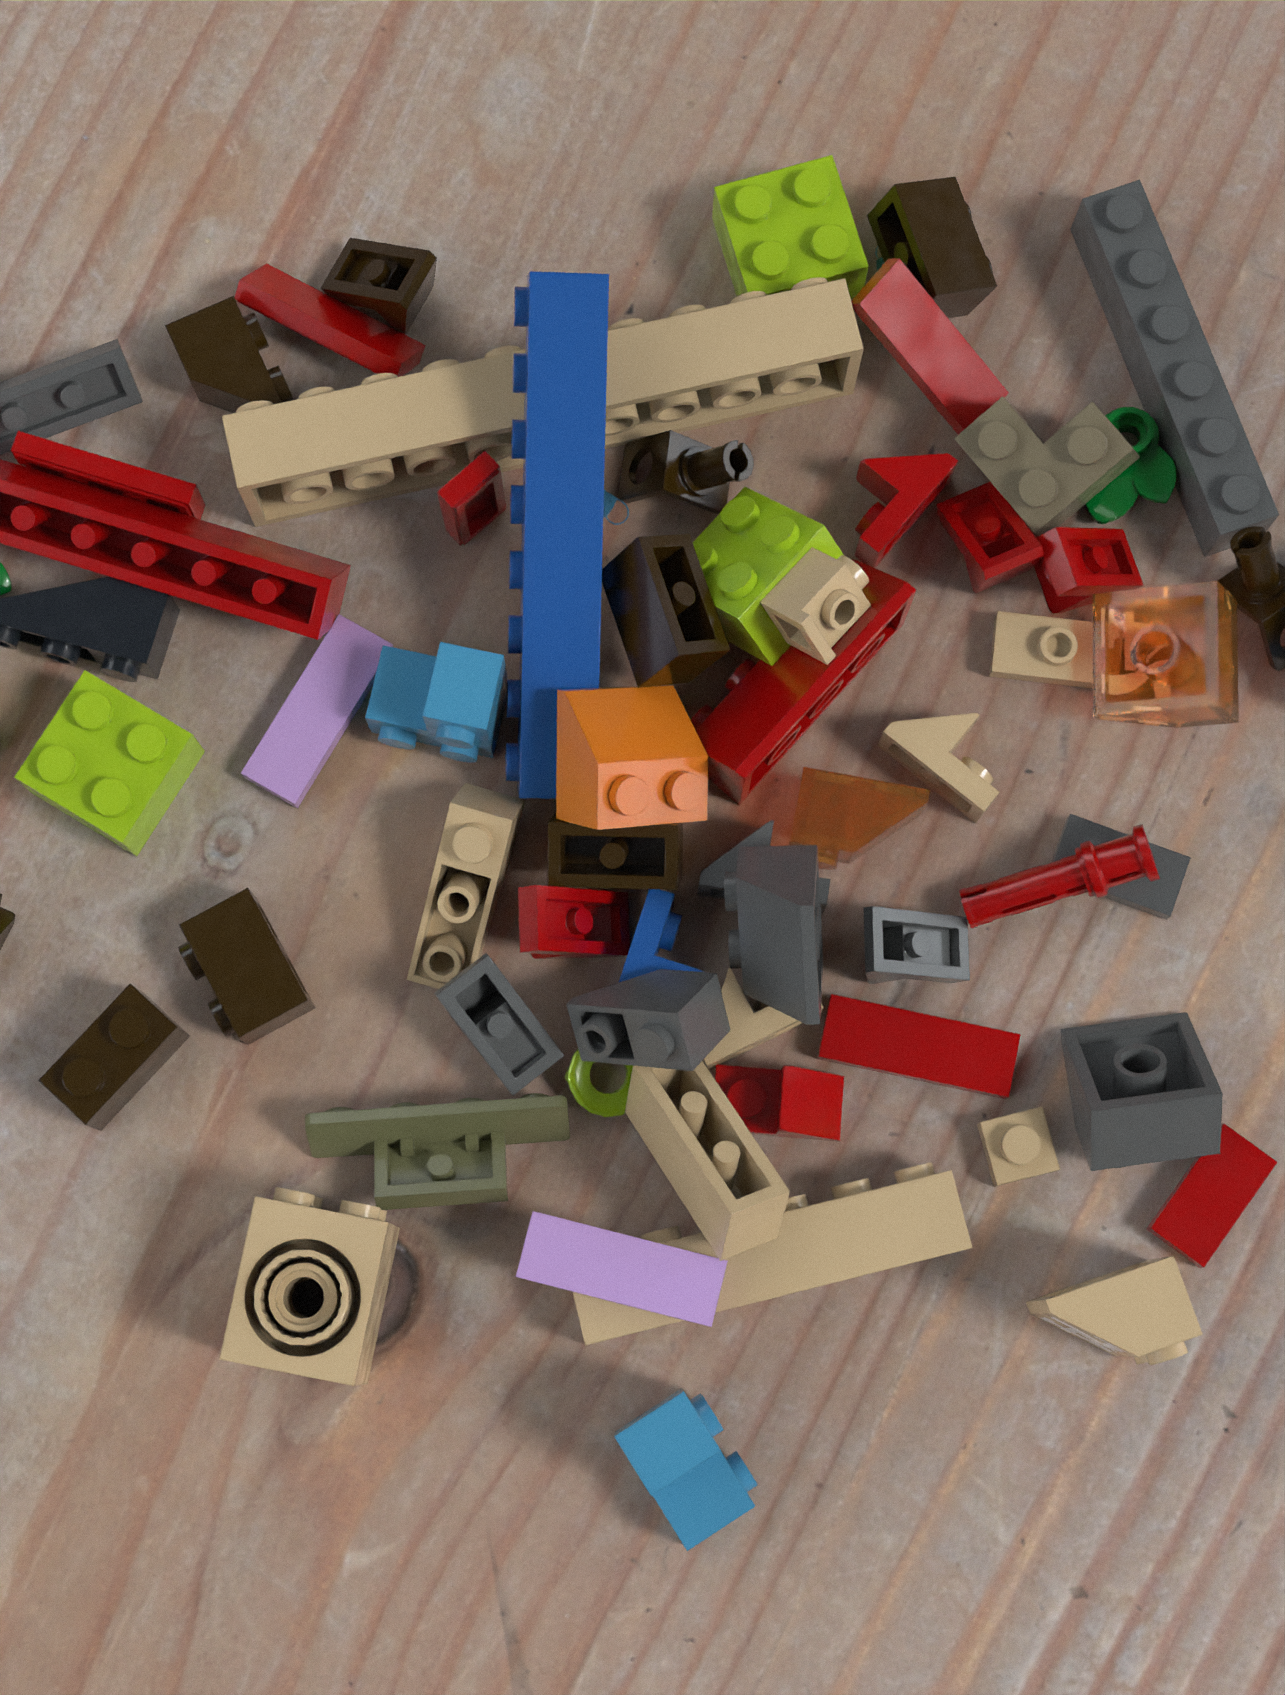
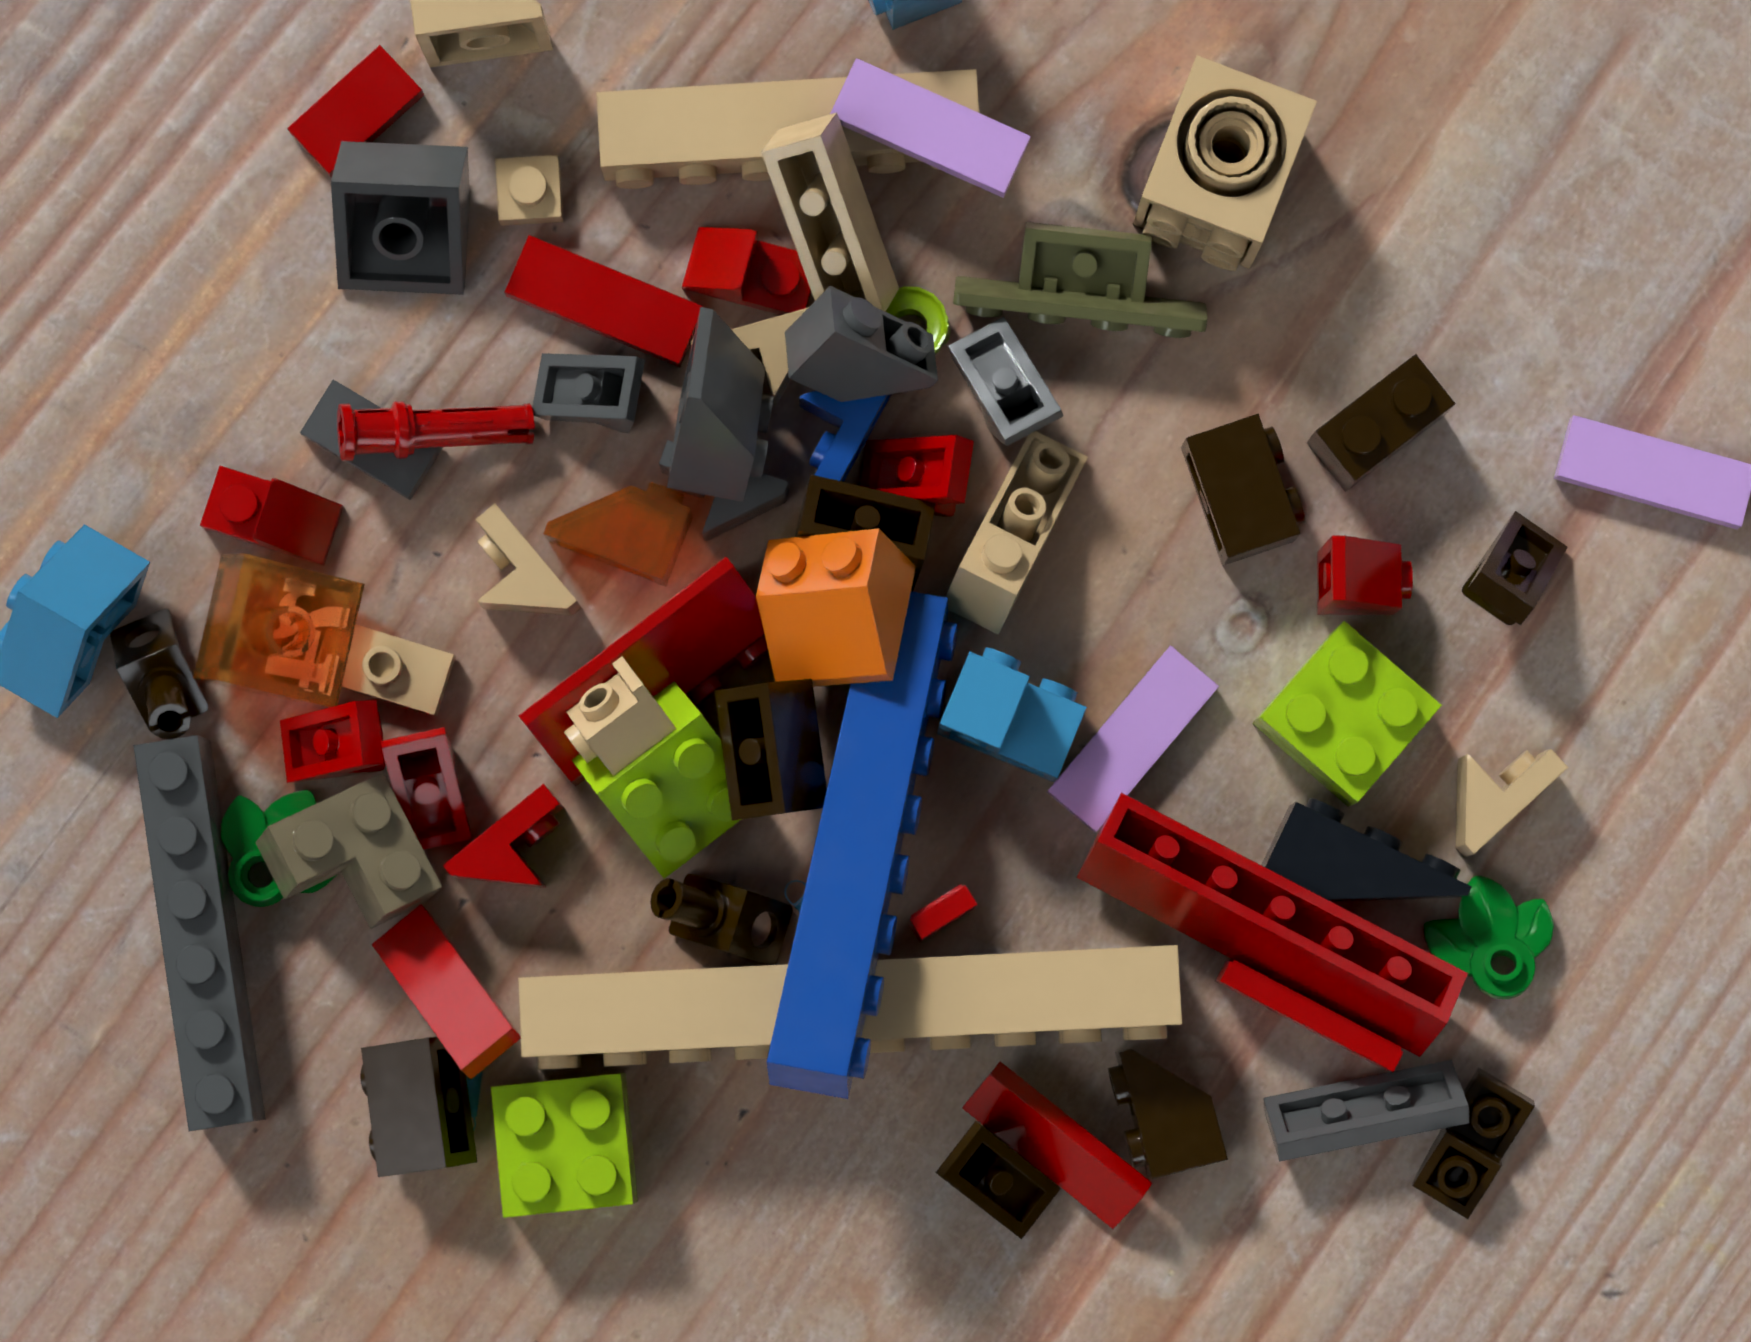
camera: 170 degrees left, 5 degrees up
(113, 895) = (1361, 577): none -> red slope
(1198, 774) = (272, 515): none -> red slope

